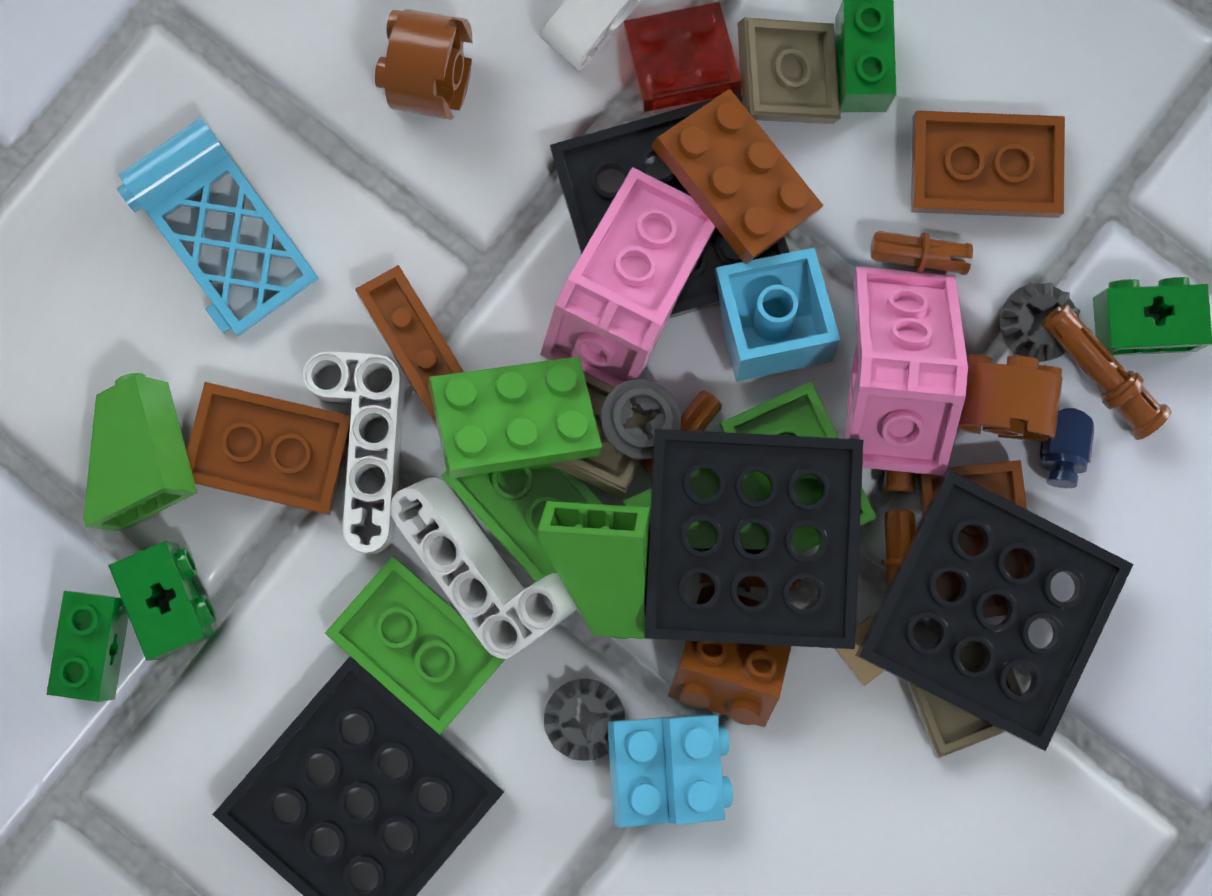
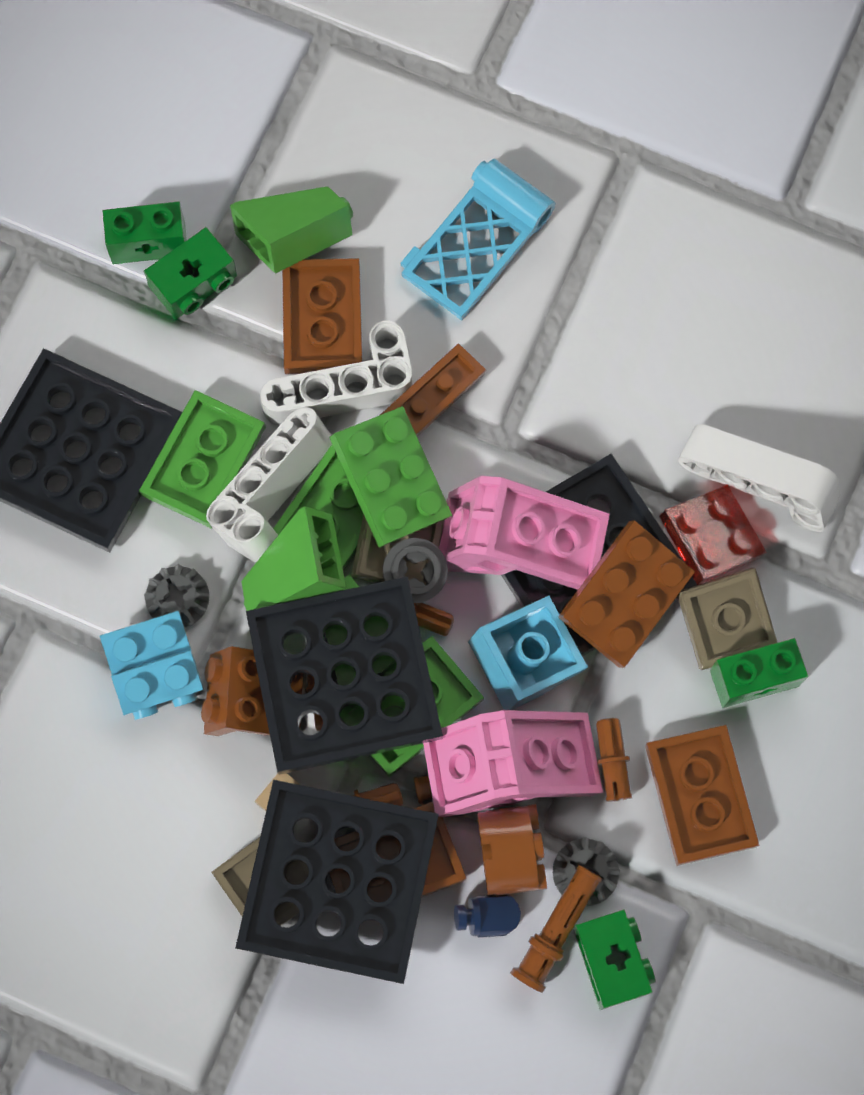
camera: 75 degrees right, 10 degrees down
(425, 63) = (643, 345): dark orange brick -> none

